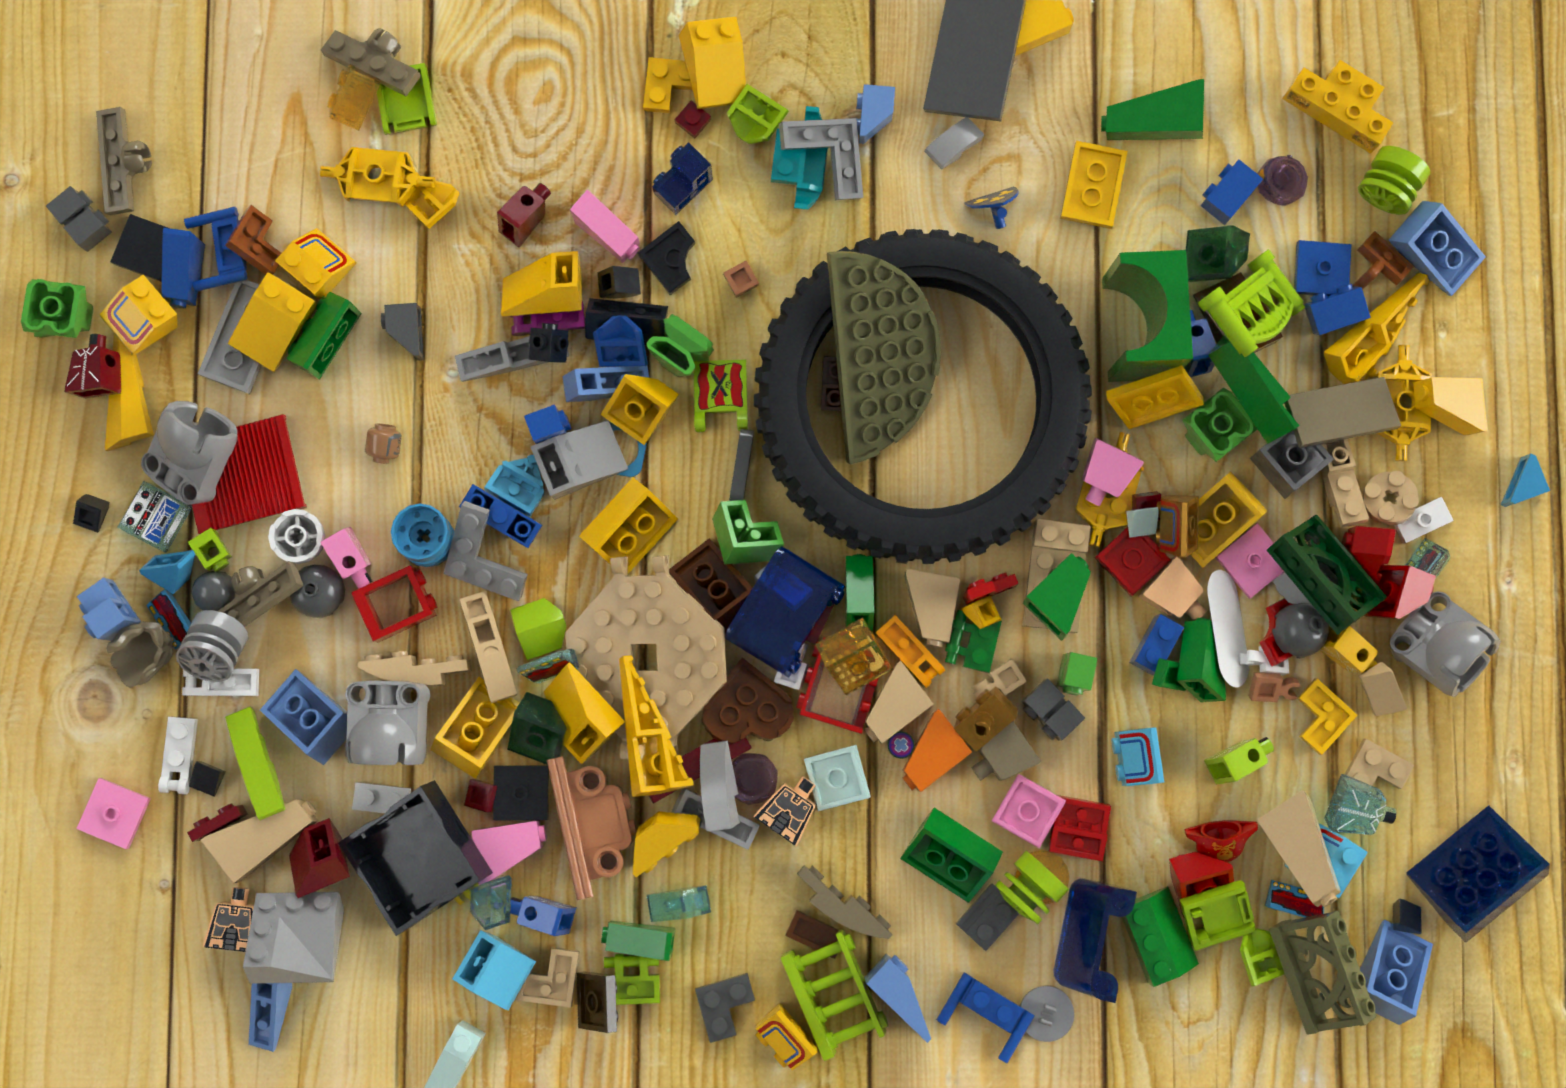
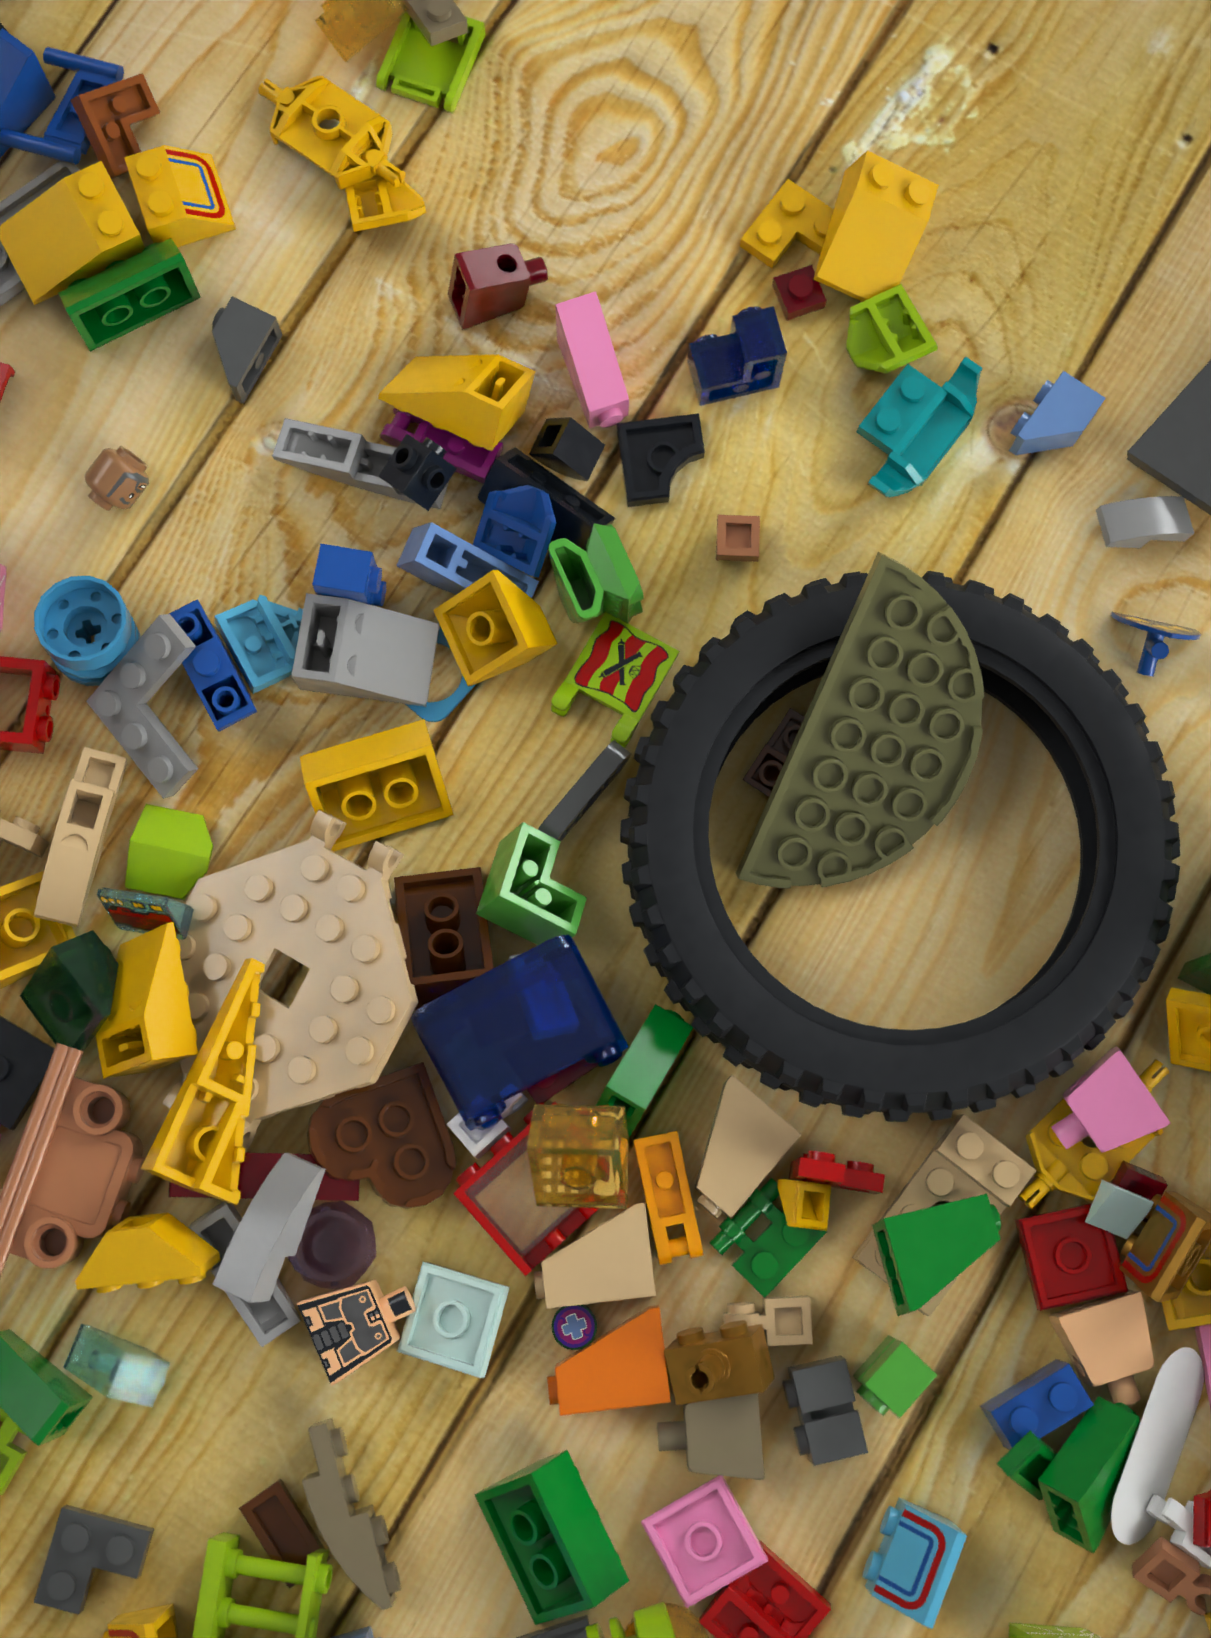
camera: 30 degrees right, 5 degrees down
(842, 138) = (989, 424): light grey plate -> none

